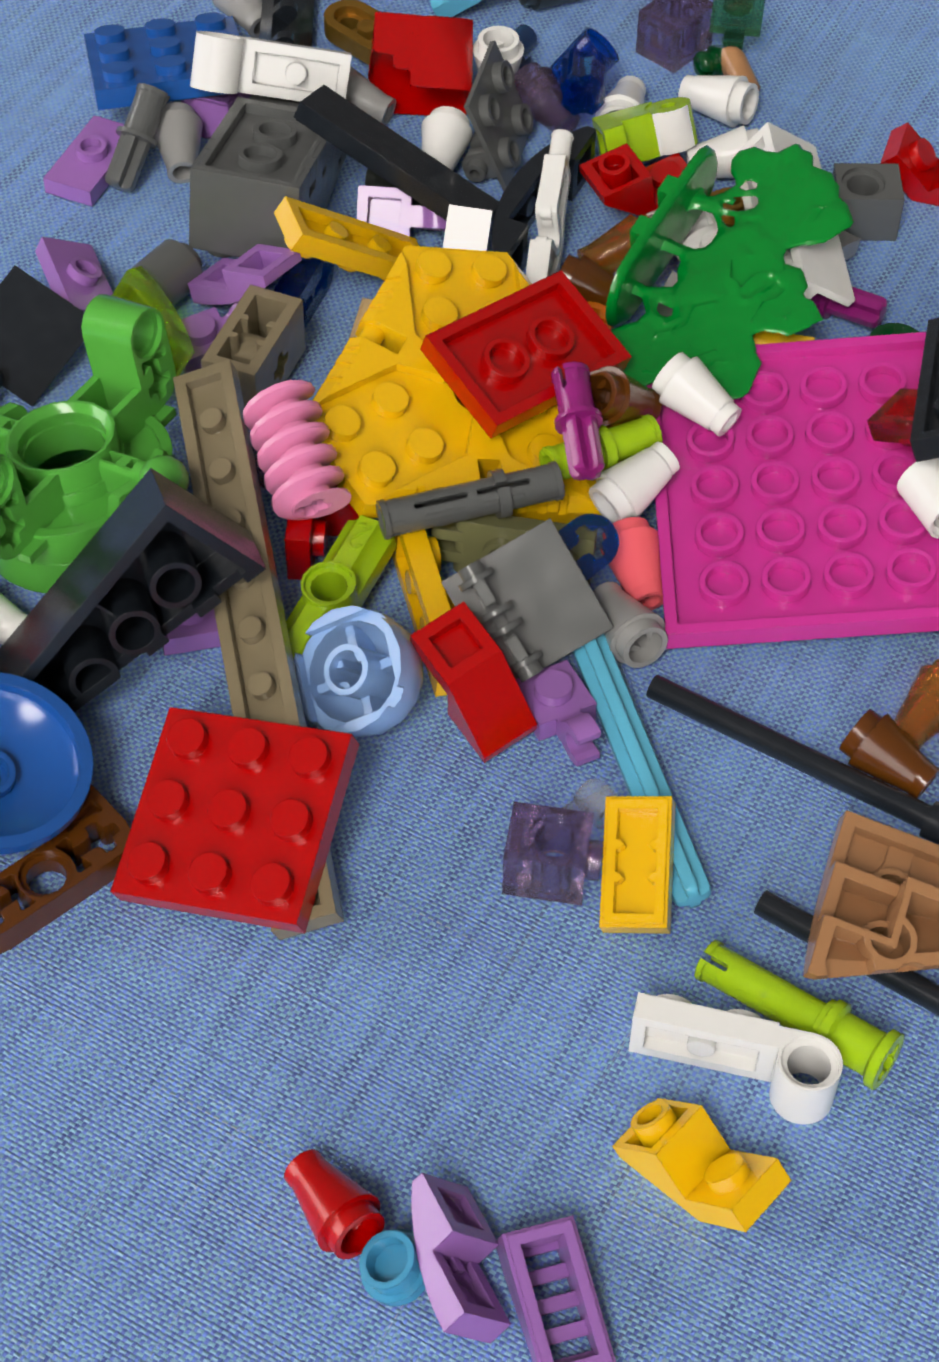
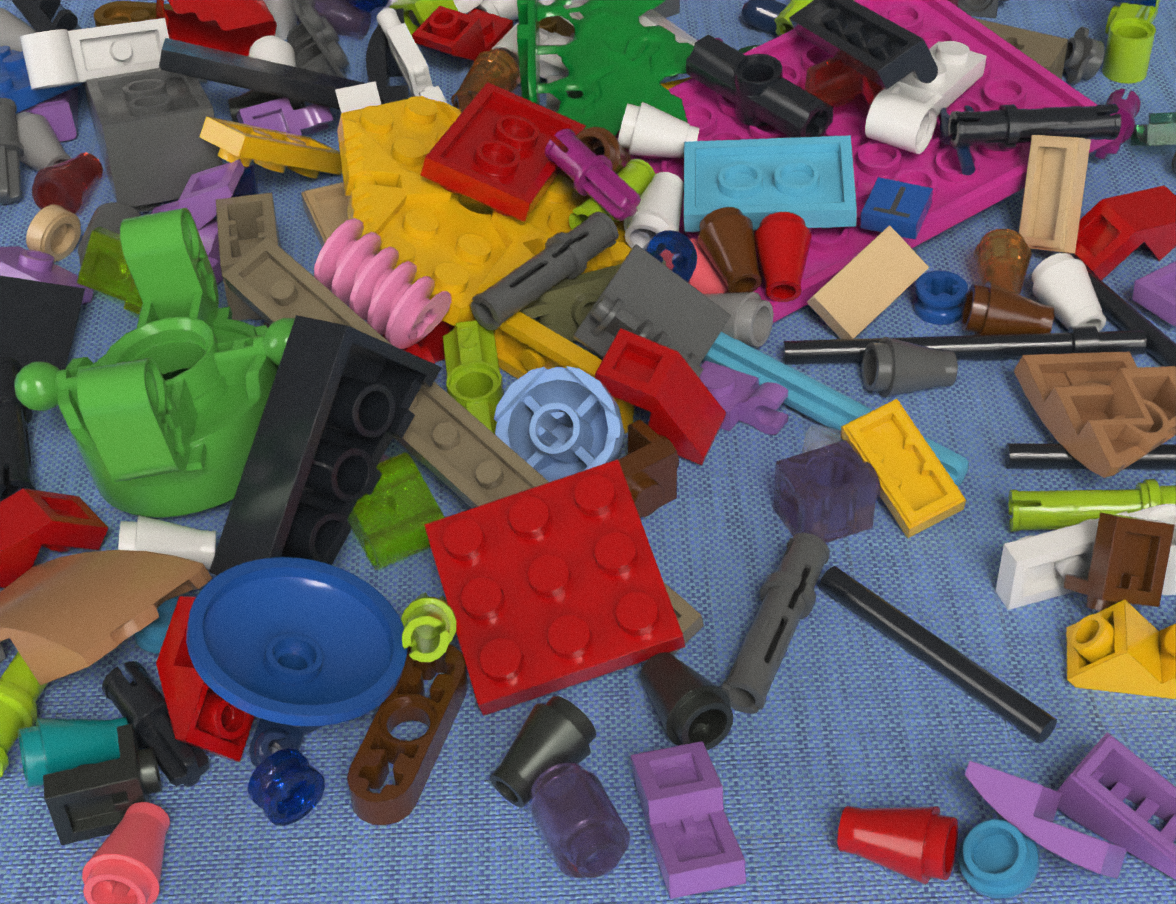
camera: 30 degrees left, 10 degrees down
(101, 1037) = (578, 821): none -> clear purple brick
(108, 802) = (428, 627): none -> lime axle
(122, 245) = (54, 232): none -> tan tile
(125, 961) = (549, 737): none -> pearl dark grey cone
(163, 198) = (67, 182): none -> clear red cone
(182, 673) = (394, 515): none -> clear neon green piece
(192, 1084) = (687, 820): none -> medium lavender slope
(269, 983) = (686, 702): none -> pearl dark grey cone
(405, 754) = (650, 468): none -> reddish brown bracket
(471, 908) = (785, 600): none -> dark grey pin
(521, 1059) = (939, 655): none -> black bar
(666, 557) = (730, 246): none -> reddish brown cone
(708, 587) = (783, 252): none -> red cone
(732, 1071) = (1125, 562): none -> reddish brown bracket
(743, 763) = (905, 367): none -> dark grey cone
(758, 503) = (770, 177): none -> medium azure plate
(777, 656) = (868, 284): none -> tan tile
(829, 393) = (758, 89): none -> black piece
(859, 689) = (940, 297): none -> blue bush
(861, 589) = (897, 205): none -> blue tile

